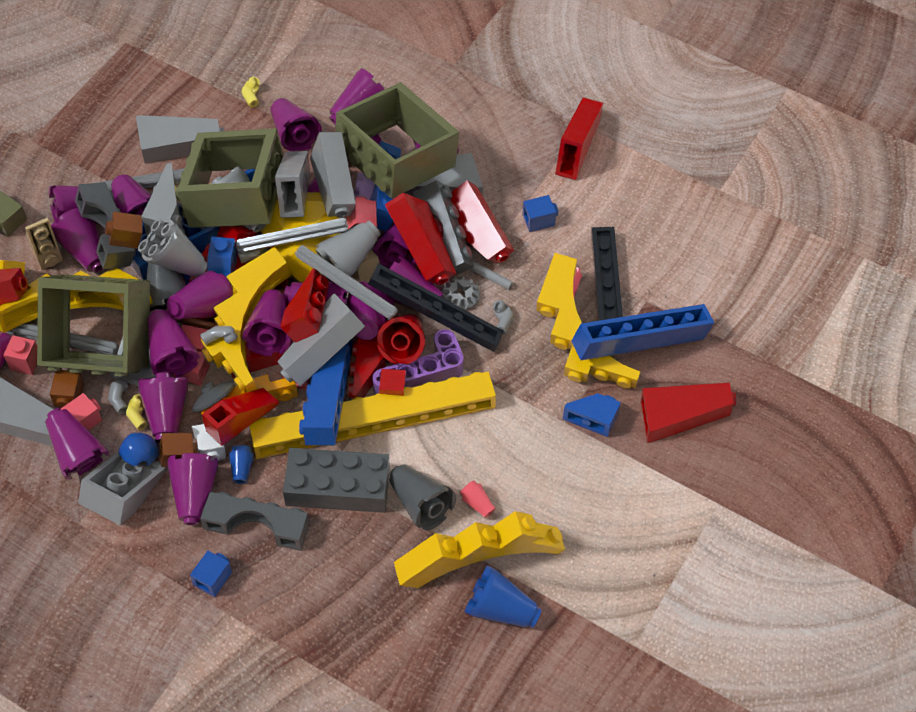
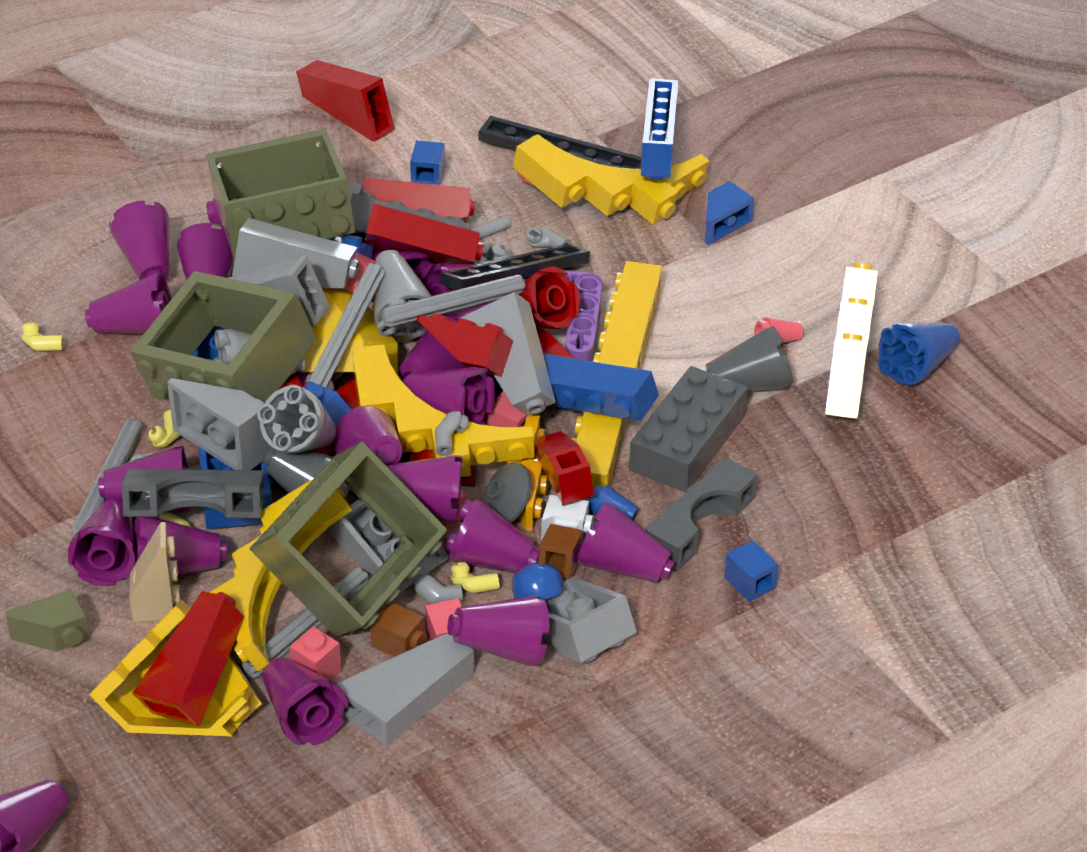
camera: 65 degrees left, 15 degrees down
(124, 230) = (236, 457): dark orange brick -> none
(170, 136) = (61, 424): light grey slope -> none
(392, 382) = (594, 333): red tile -> none
(685, 407) = (756, 151): red slope -> none

